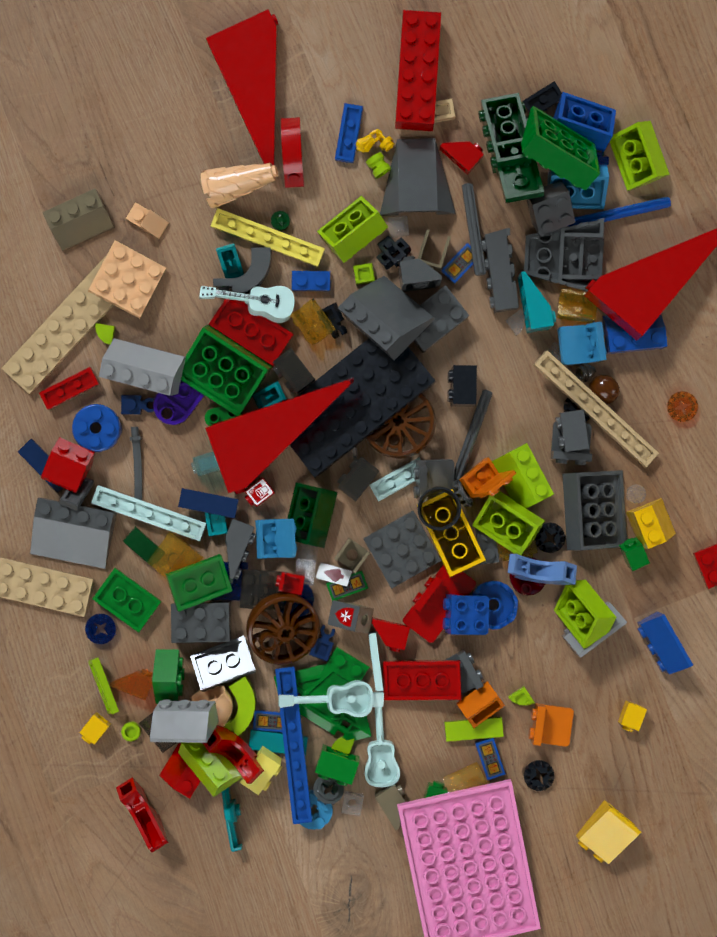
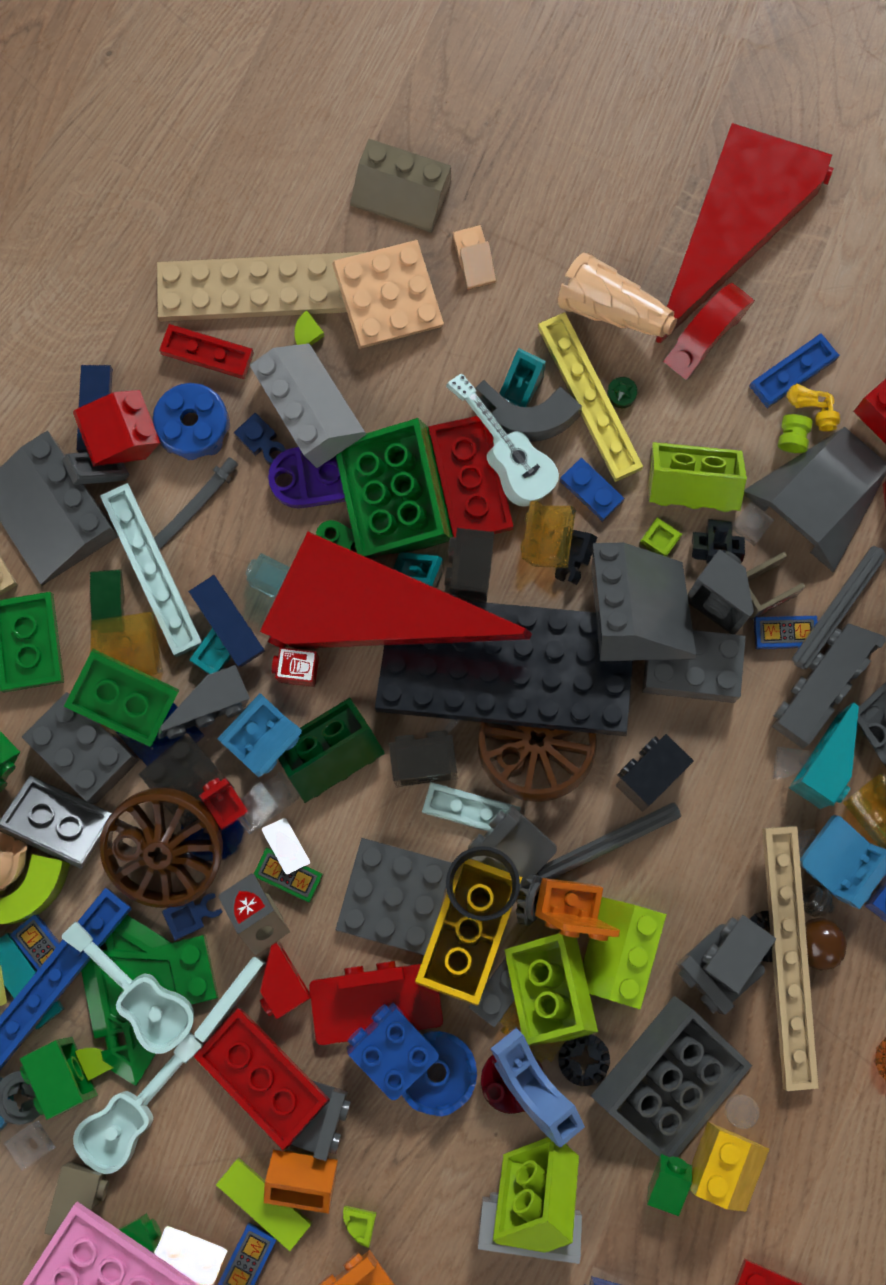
camera: 50 degrees right, 10 degrees down
(355, 564) = (329, 827): dark tan piece -> none

